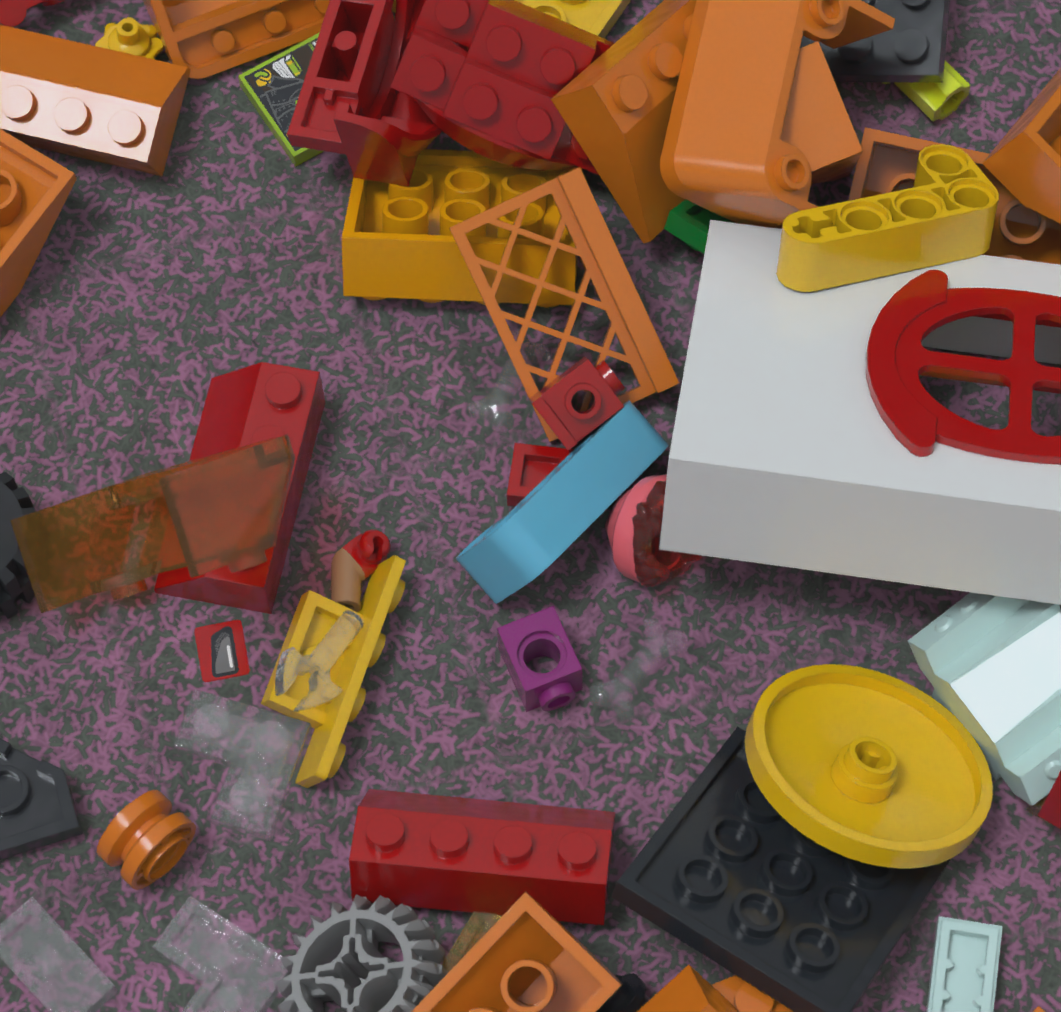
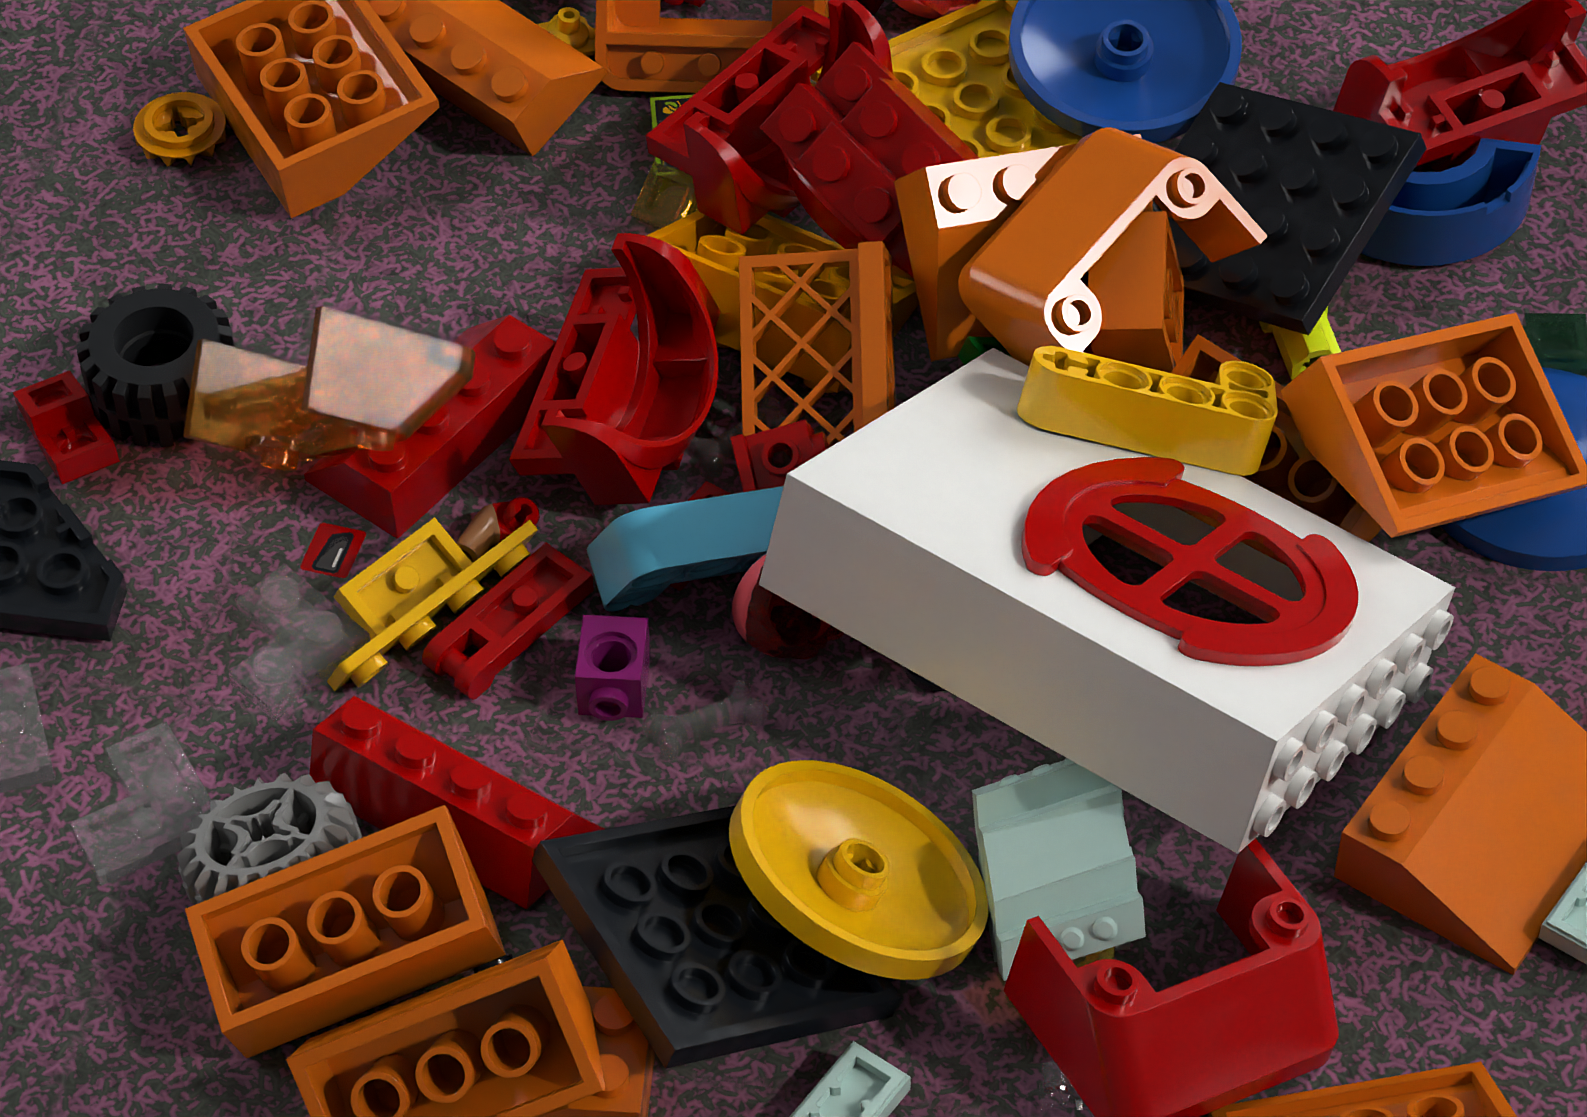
camera: 25 degrees right, 15 degrees down
(146, 839) = (157, 658): orange wheel -> none
(318, 176) = (665, 197): none -> clear yellow plate
(318, 663) = (403, 580): clear bar -> none
(399, 394) = (621, 405): none -> red piece
(421, 652) = (508, 619): none -> red plate

